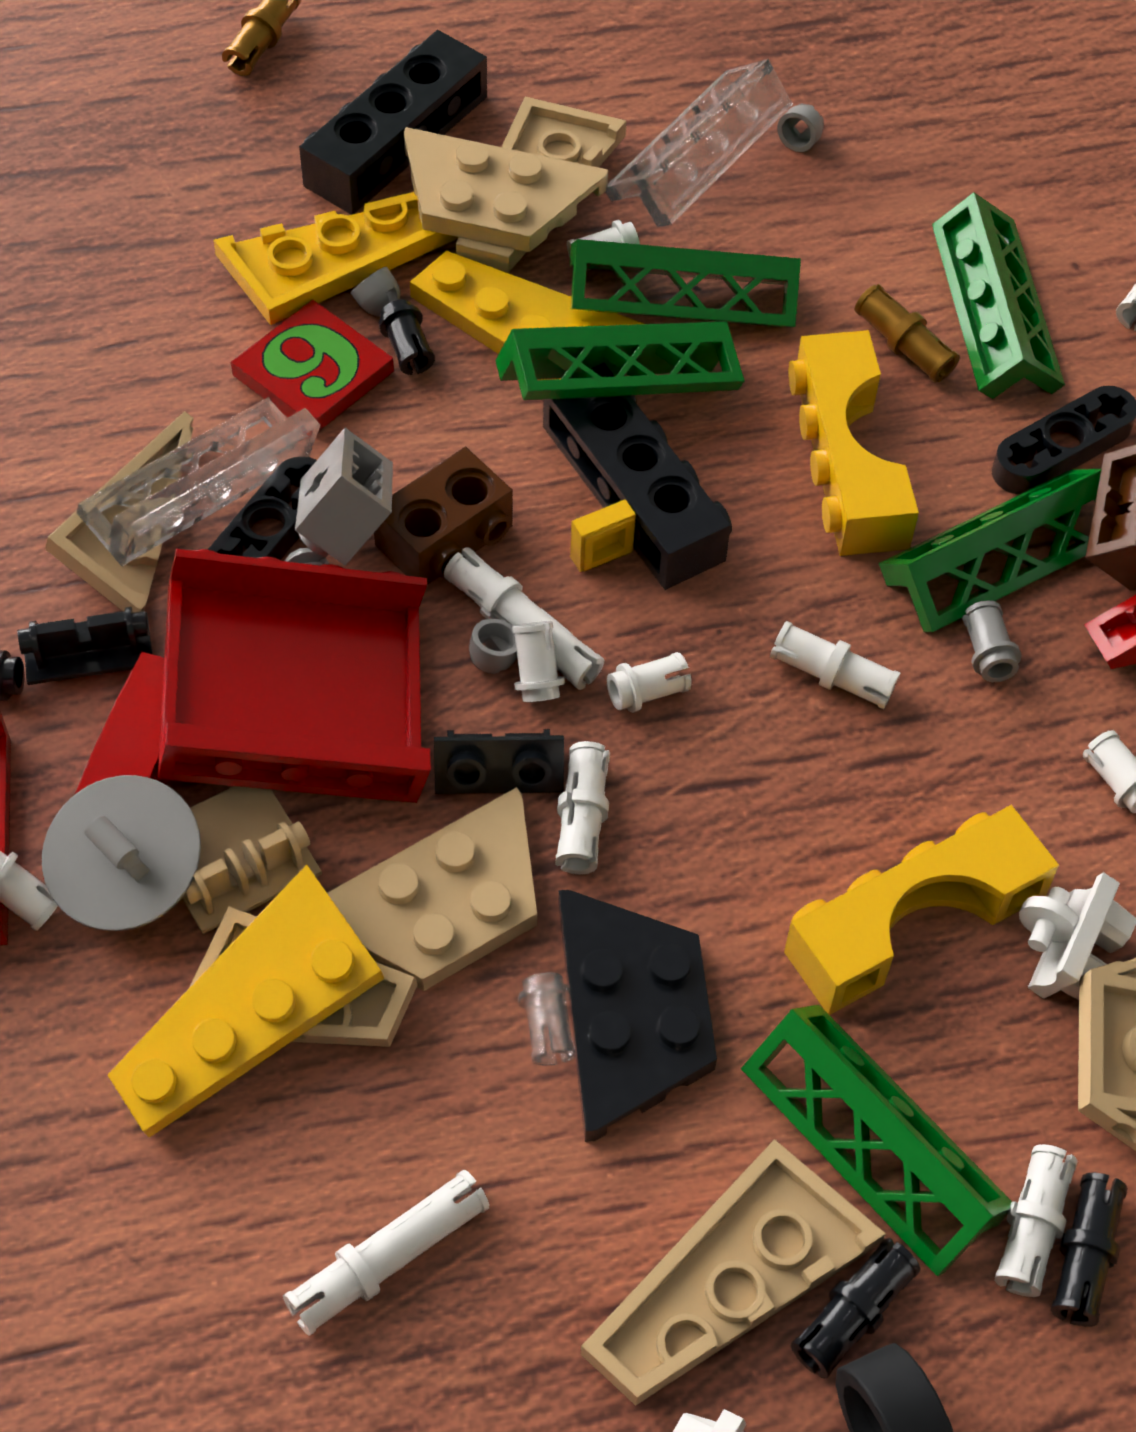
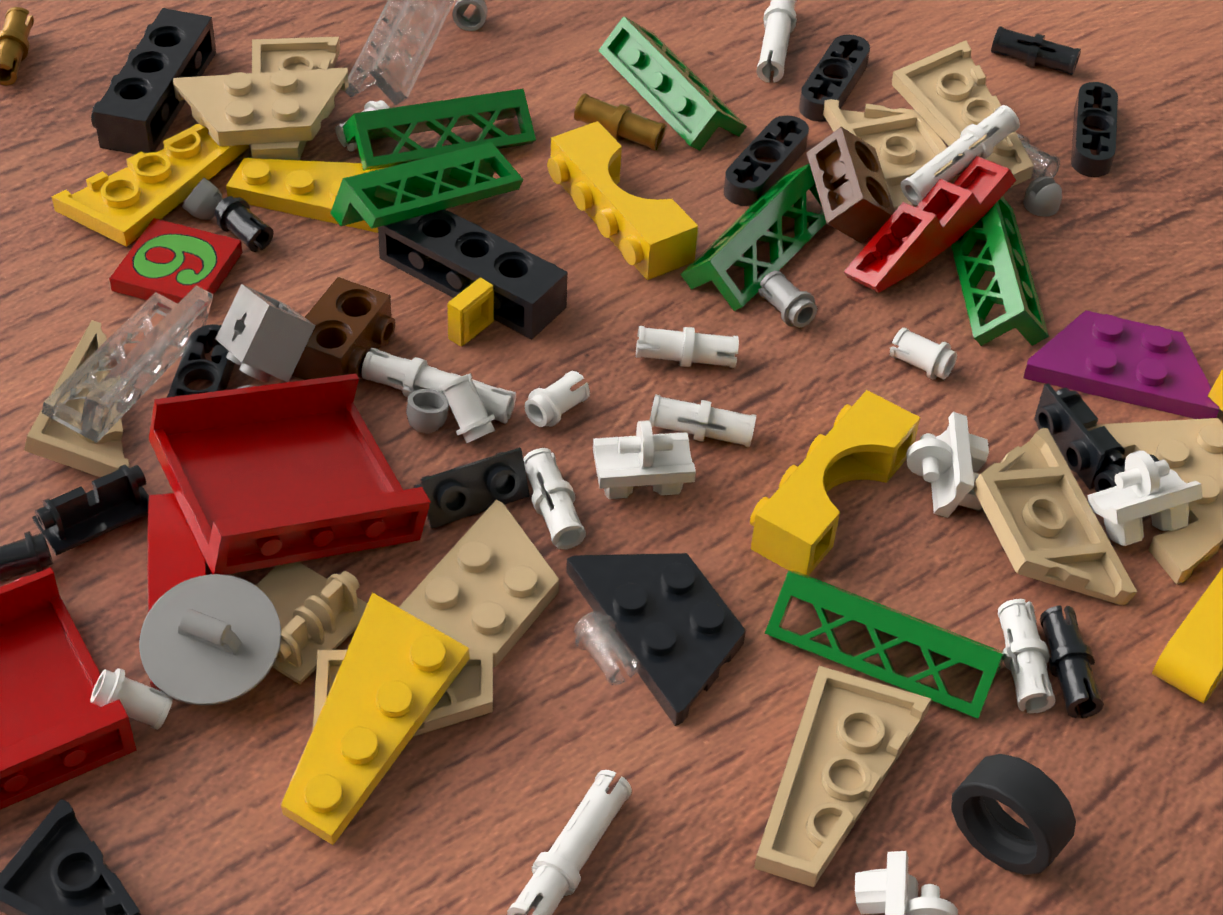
camera: 25 degrees left, 10 degrees down
(702, 801) = (643, 461): none -> white hips
(804, 769) = (702, 420): none -> white pin
(855, 1308) = (934, 760): black pin -> none

